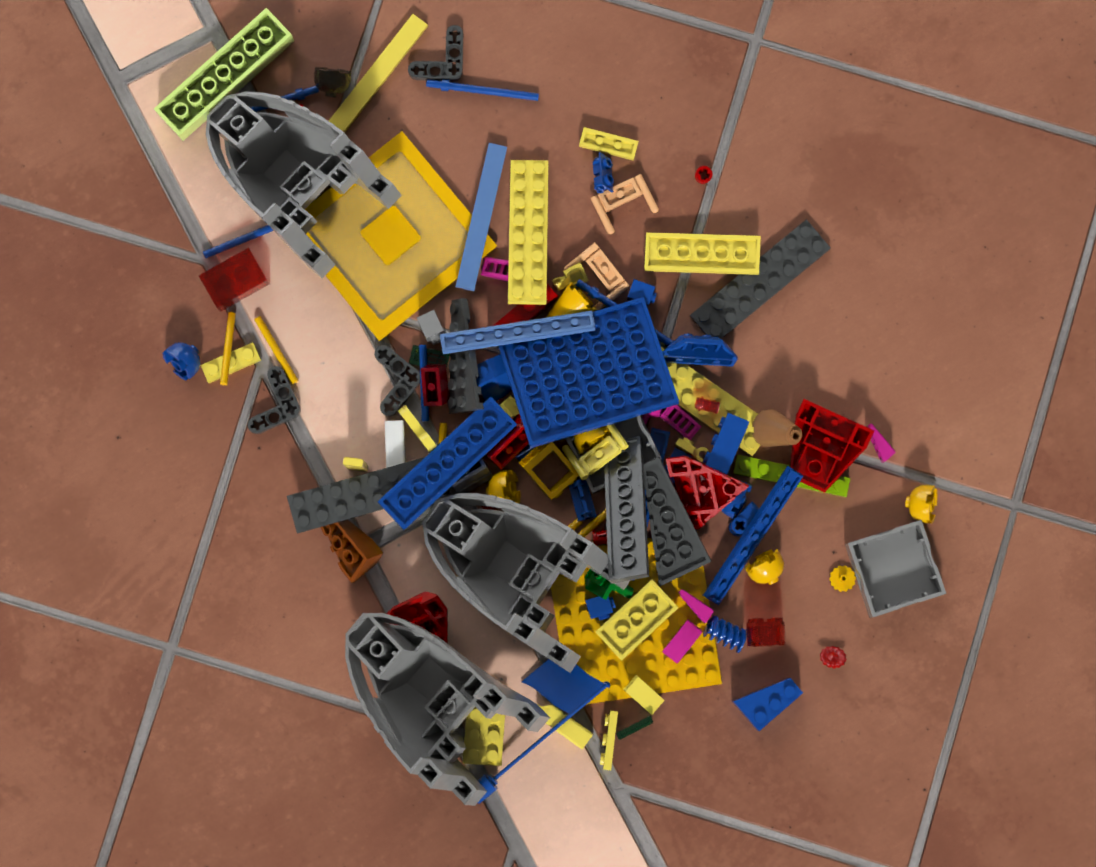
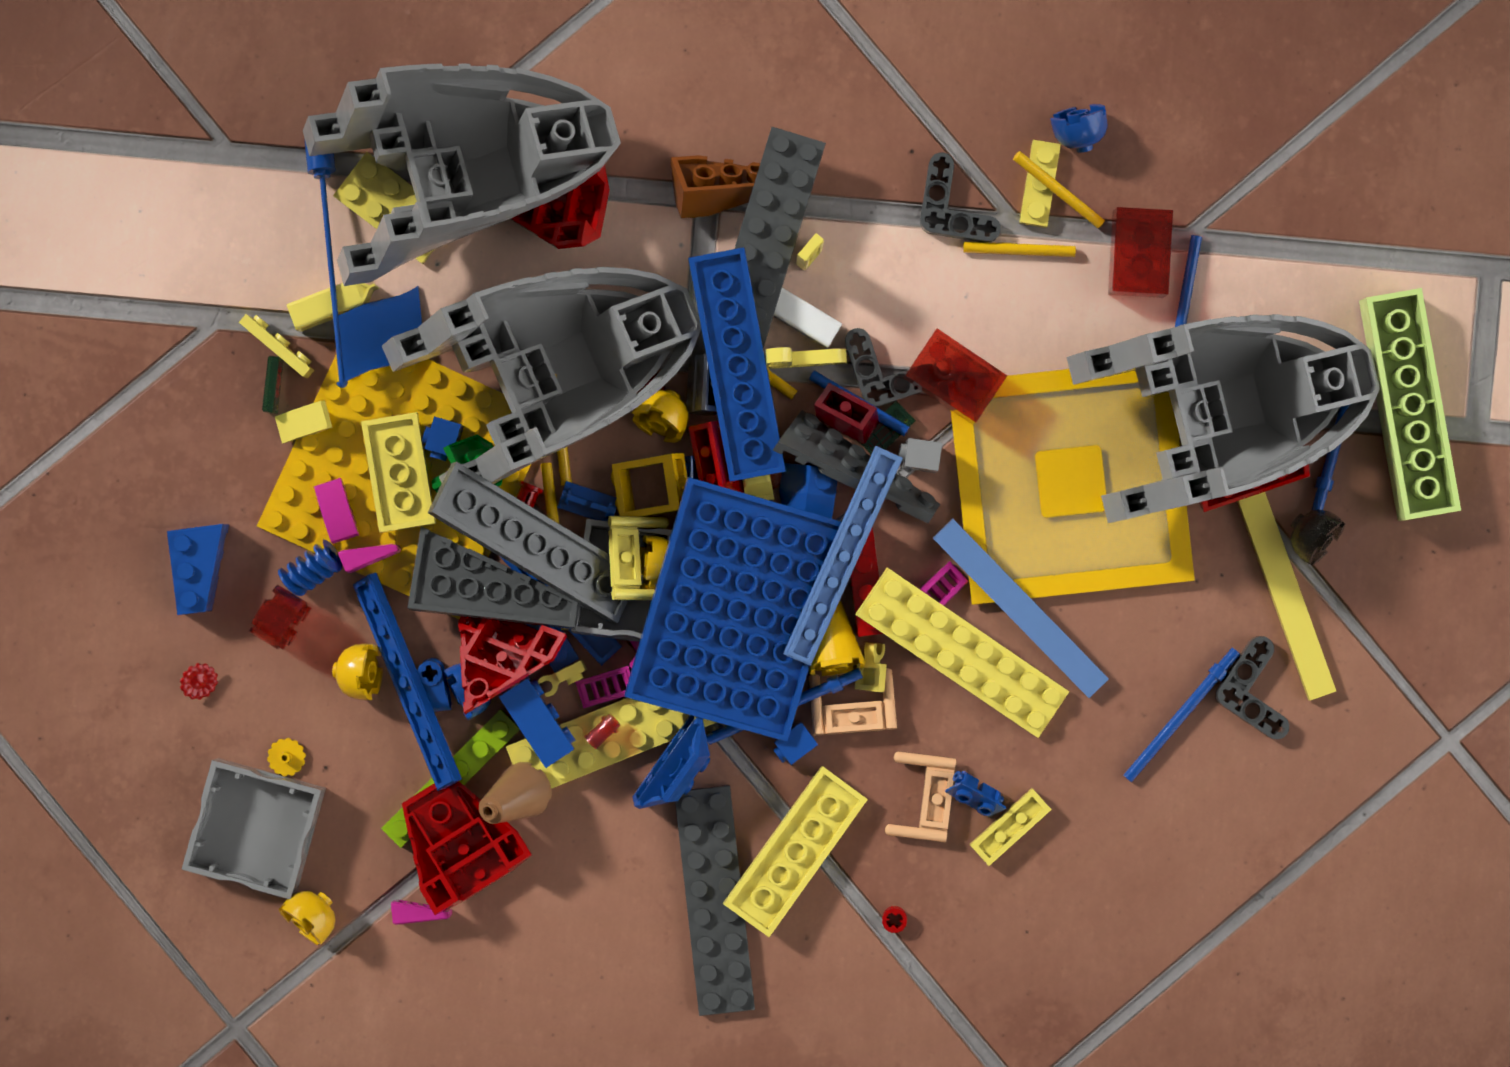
camera: 120 degrees right, 5 degrees up
(373, 336) = (955, 376): none -> clear red brick

